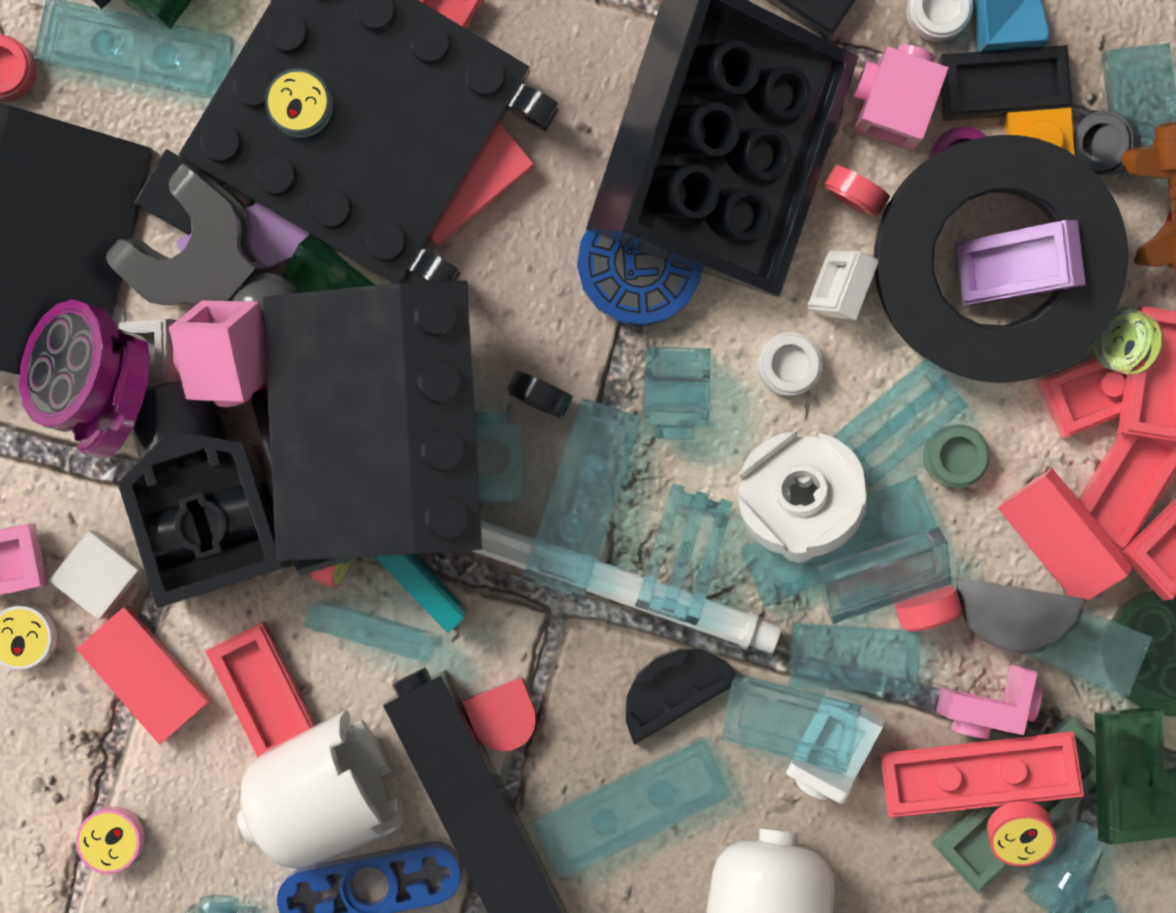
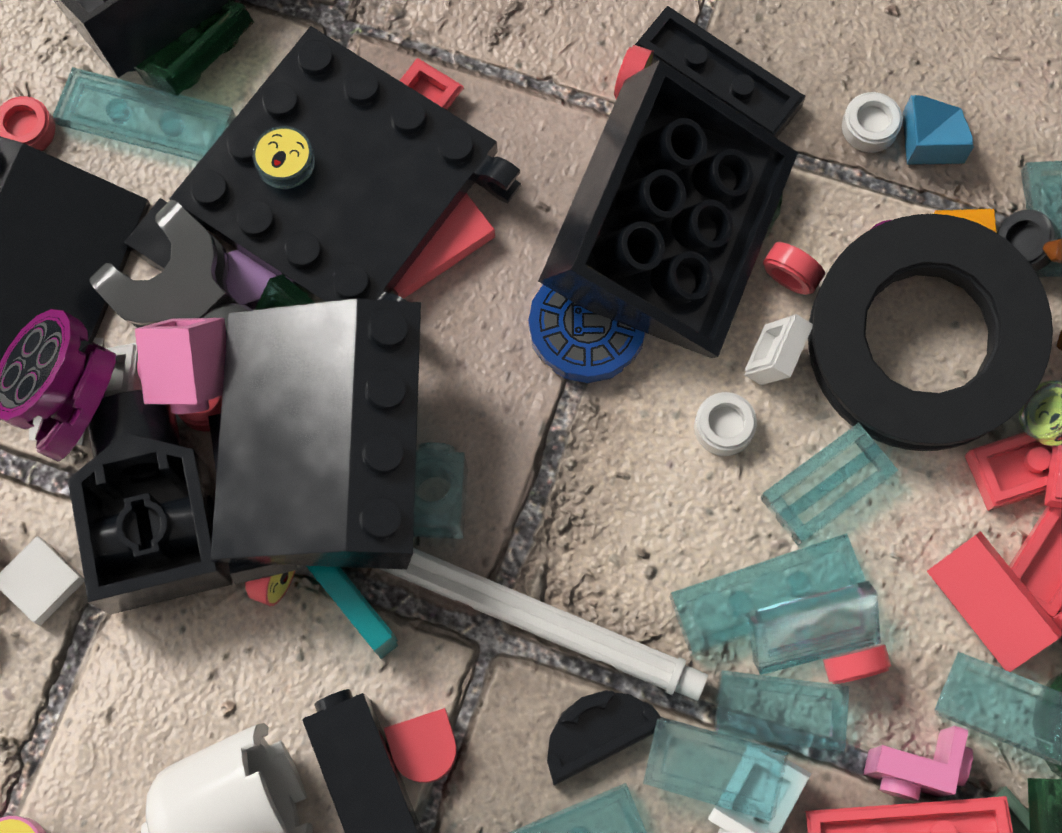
camera: 10 degrees right, 15 degrees down
(143, 674) = (71, 682): coral tile -> none
(261, 688) = (183, 699): coral tile -> none
(371, 630) = (300, 648): clear light blue tile -> none
(539, 394) = (484, 433): black tile -> none
(582, 498) = (517, 535): clear light blue tile -> none
(676, 391) = (615, 437): clear light blue brick -> none
(698, 506) = (630, 552): clear light blue tile -> none
(806, 460) = (740, 571): white plate -> none
(899, 95) = (833, 189): bright pink brick -> none
(956, 456) = (885, 519): sand green tile -> none
(1004, 82) = (929, 184): black tile -> none
(1017, 617) = (948, 676): tile -> none
(1020, 263) = (949, 336): lavender tile -> none

